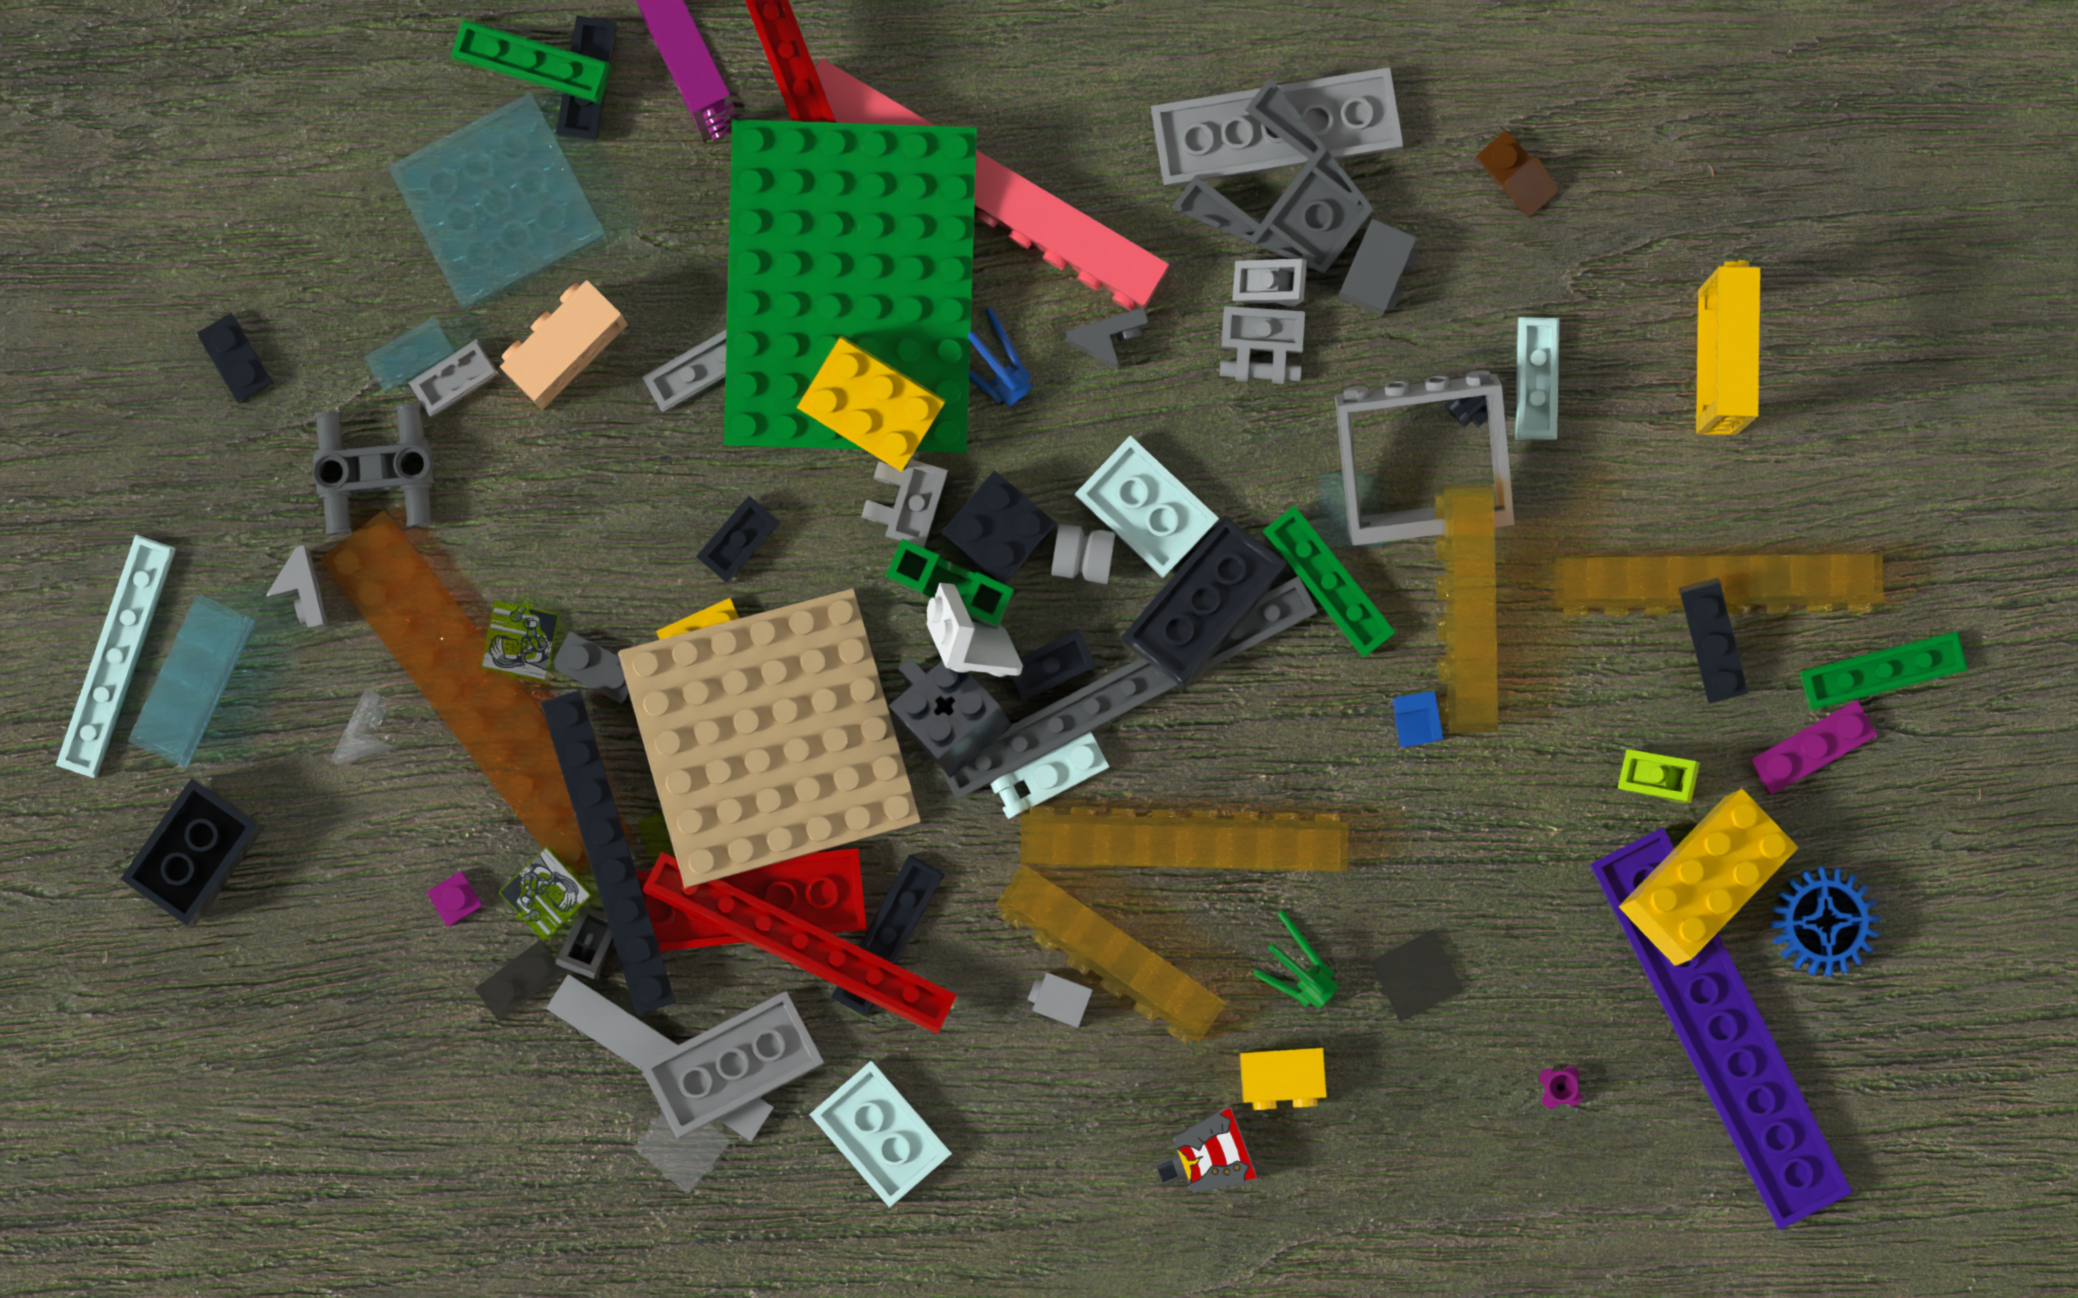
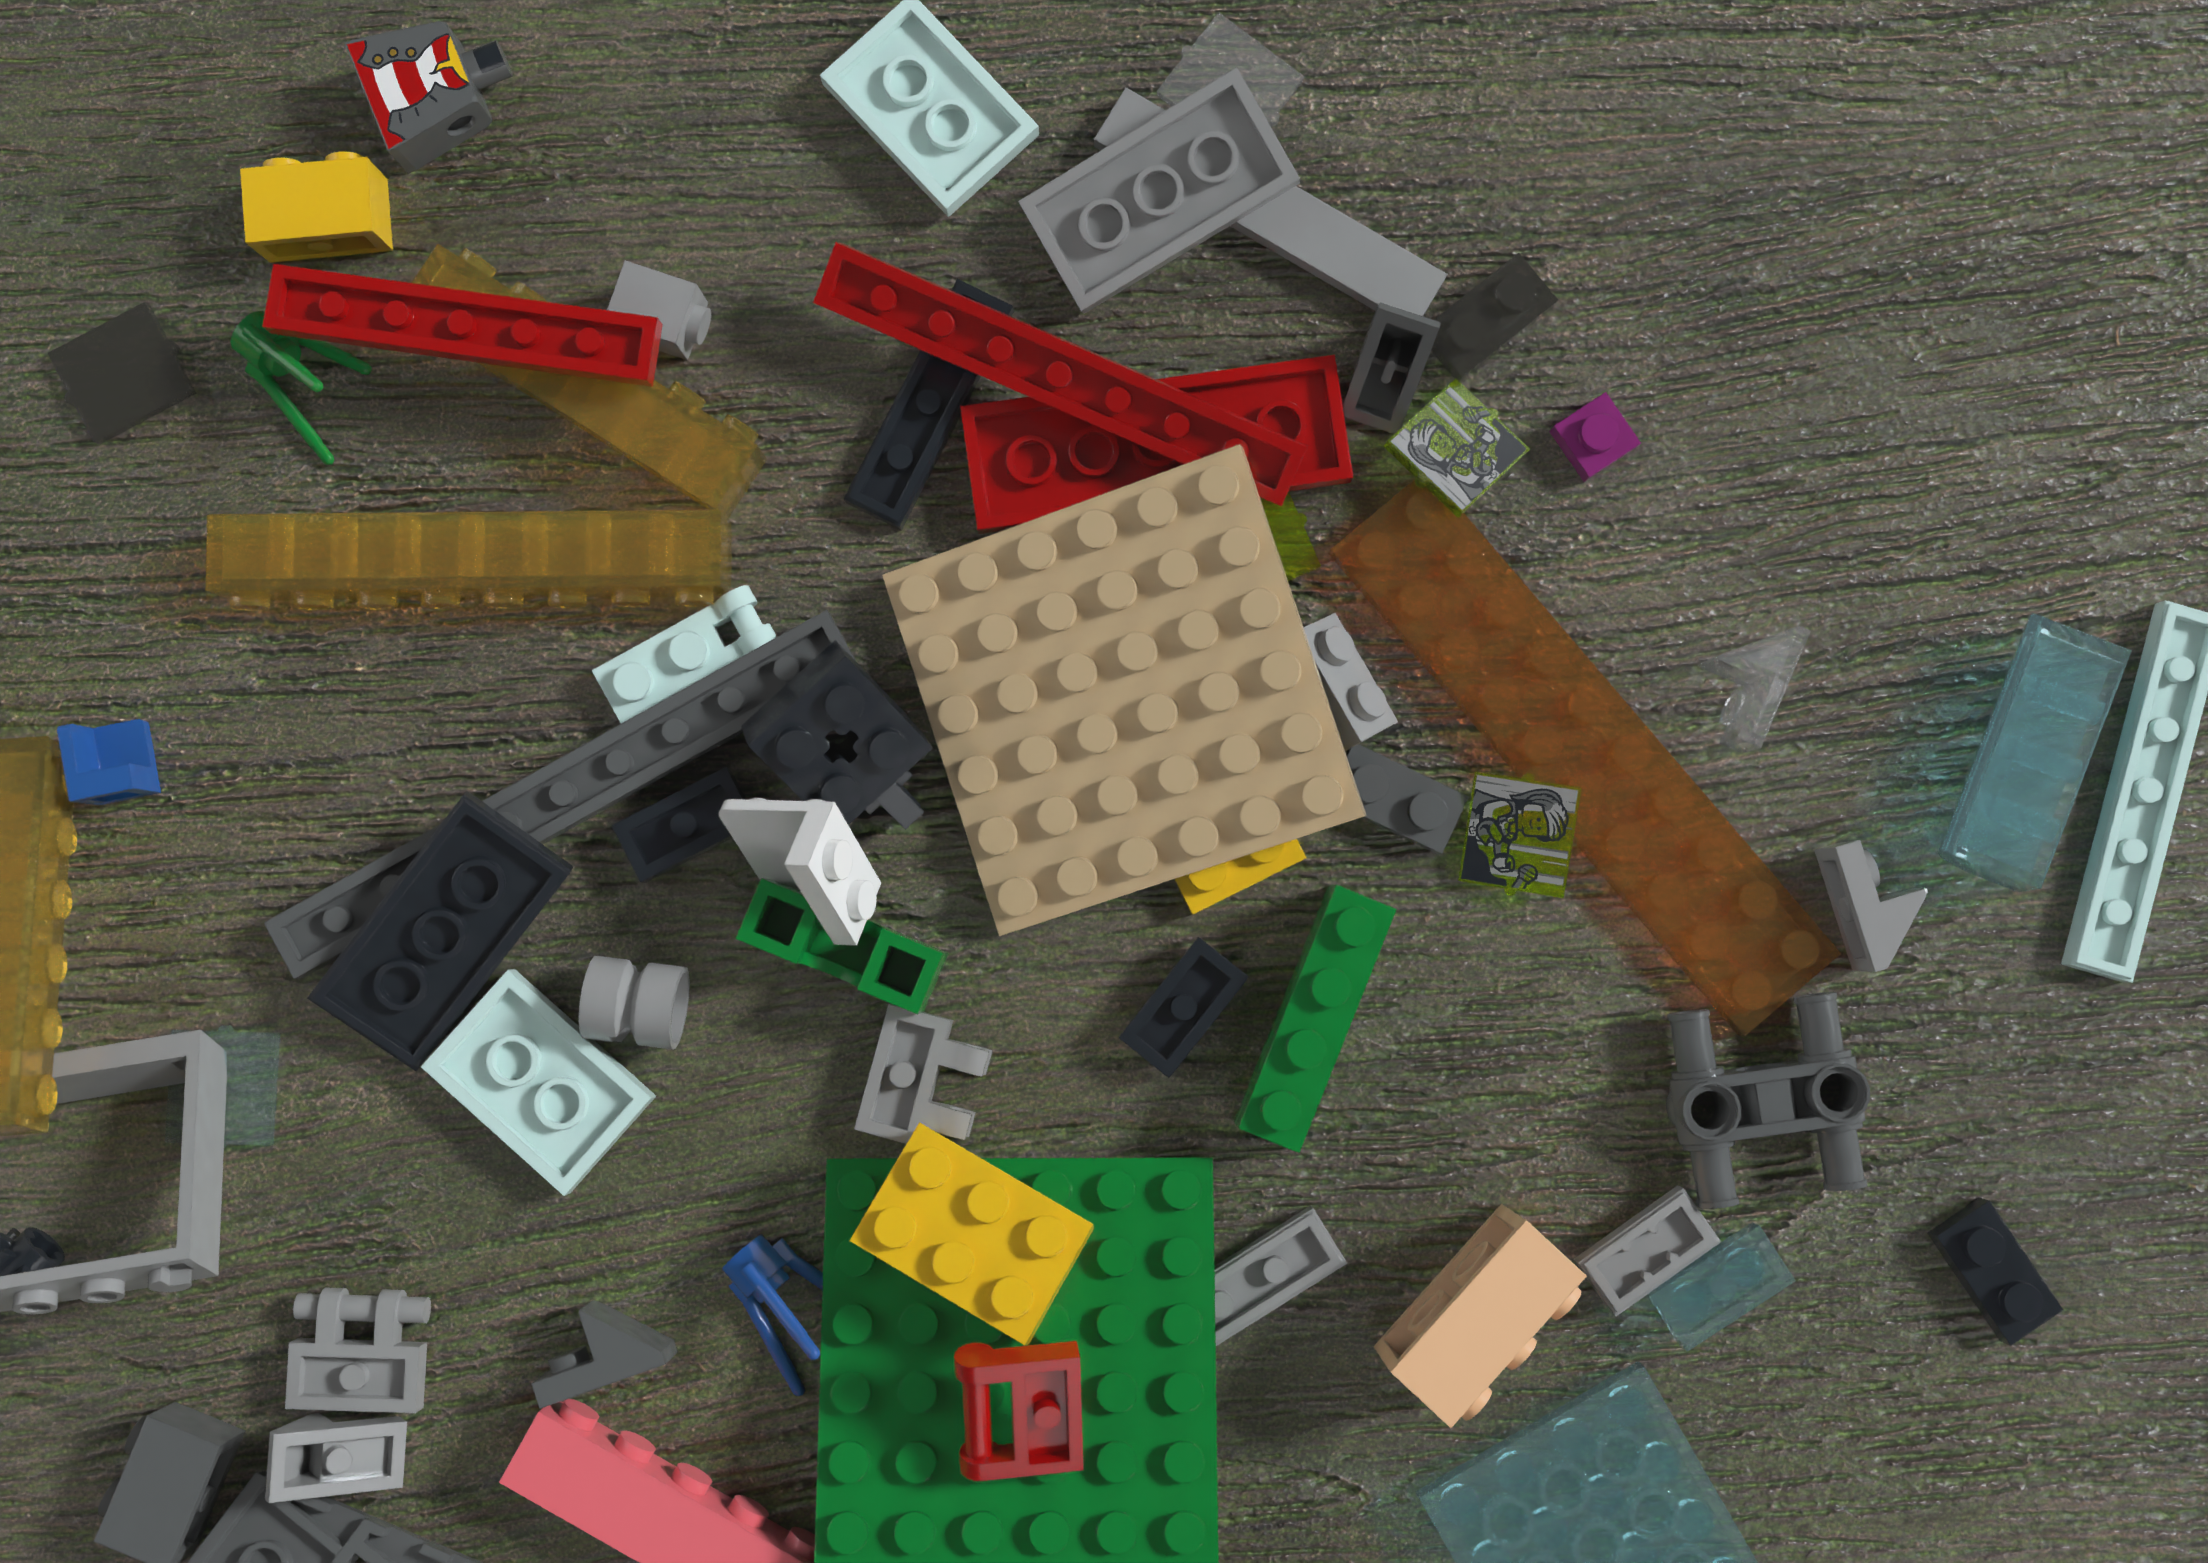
camera: 175 degrees right, 0 degrees up
(192, 852) = (2012, 484): black brick -> none
(608, 852) = (1365, 508): black plate -> none
(625, 742) = (1351, 691): none -> light grey plate
(656, 530) = (1314, 1017): none -> green brick
(830, 299) = (1043, 1410): none -> red plate
(999, 529) = (768, 1037): black brick -> none
(1178, 983) = (462, 325): none -> red plate
(1328, 582) = (249, 971): green plate -> none

